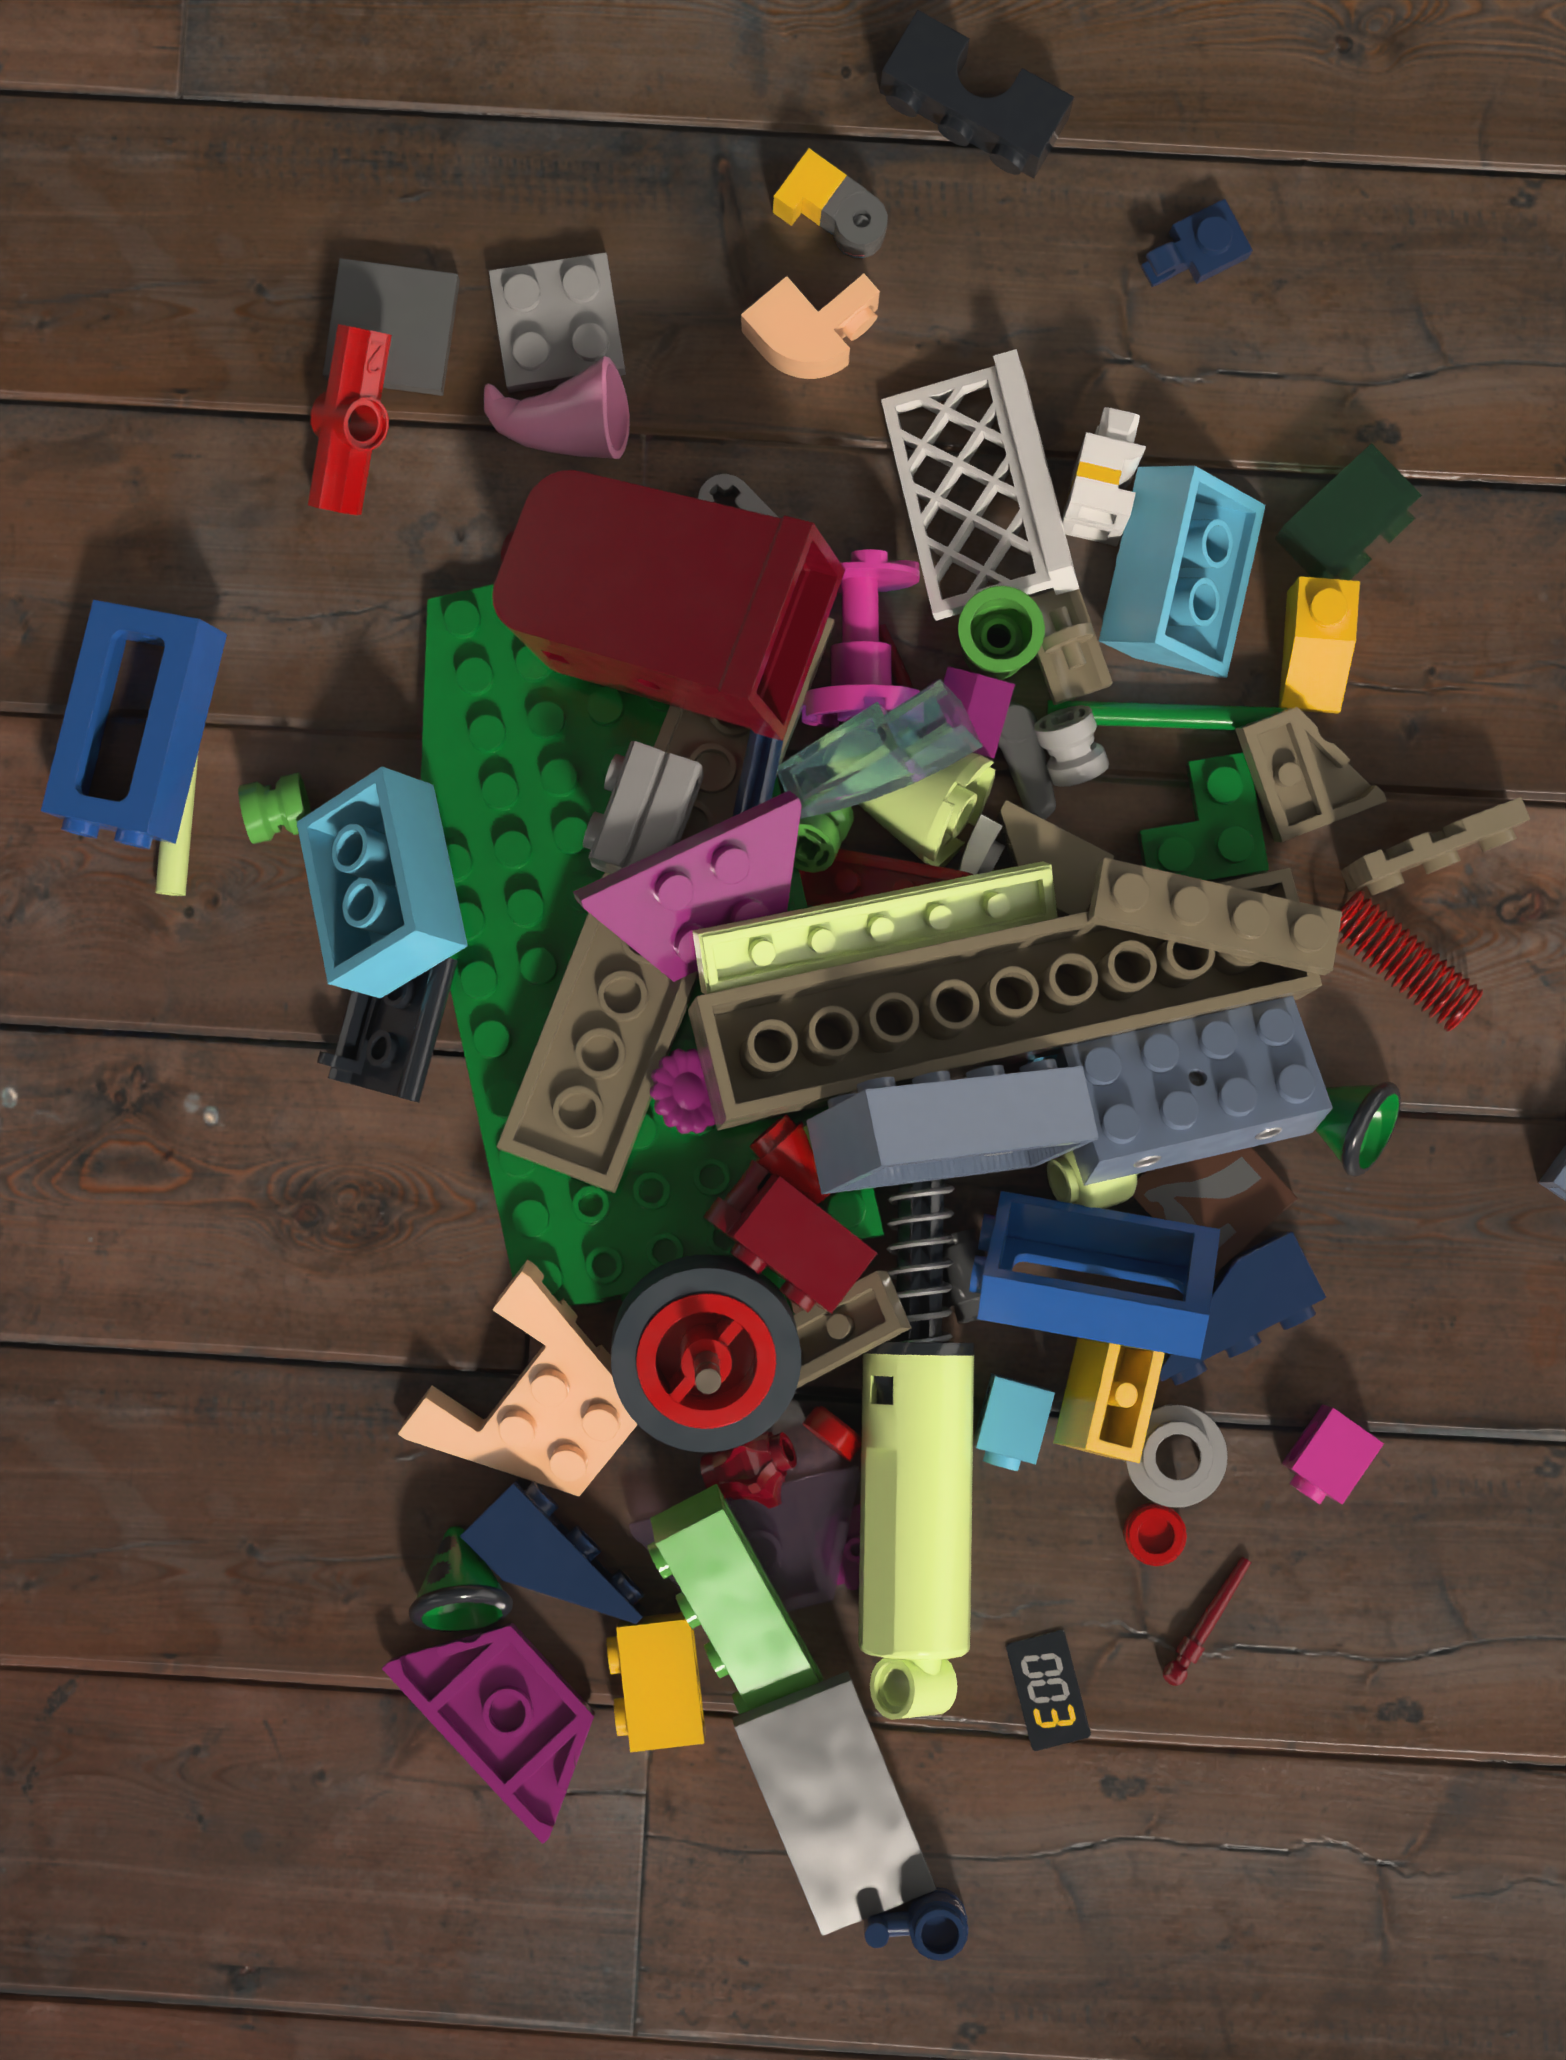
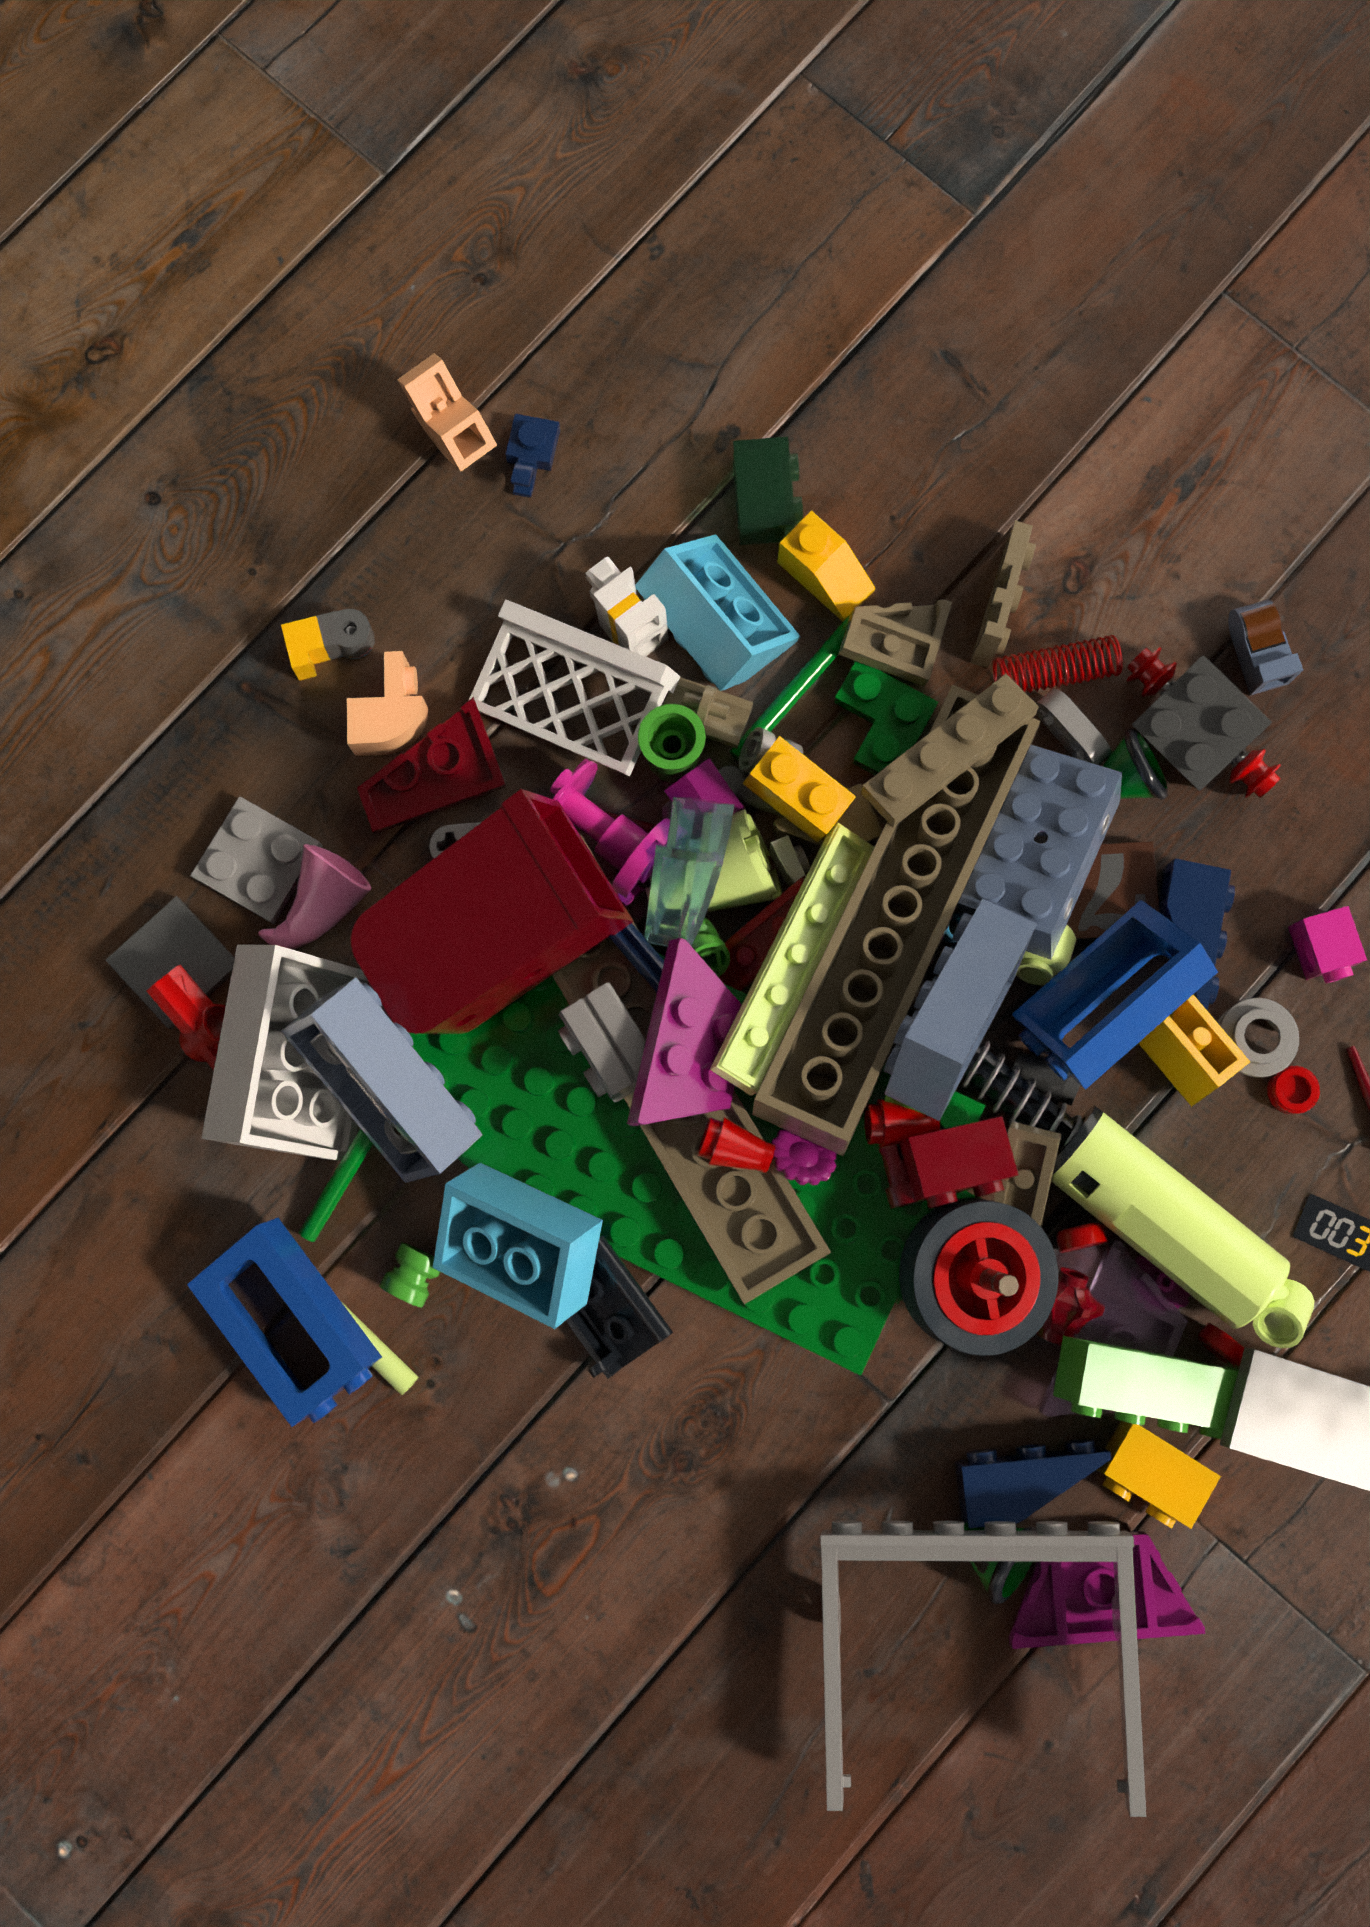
camera: 50 degrees left, 5 degrees down
(346, 658) = (336, 1187): none -> green bar
(389, 517) = (260, 1083): none -> white slope
(430, 625) = (383, 1081): none -> piece
(431, 1527) = (996, 1543): none -> light grey piece
(557, 1416) = (939, 1407): light nougat wing -> none
(639, 1016) = (734, 1147): none -> red cone
(784, 425) = (435, 774): none -> dark red wing
(836, 1649) = (1221, 1345): none -> red tile
(1011, 127) = (301, 527): black arch -> none
(1012, 1422) = (1159, 1120): medium azure brick -> none
(1051, 797) = (799, 789): none -> yellow brick
(1164, 130) = (445, 414): none -> light nougat brick
(1350, 1027) = (1072, 728): none -> light grey beam
(1460, 1152) = (1202, 723): none -> dark grey brick

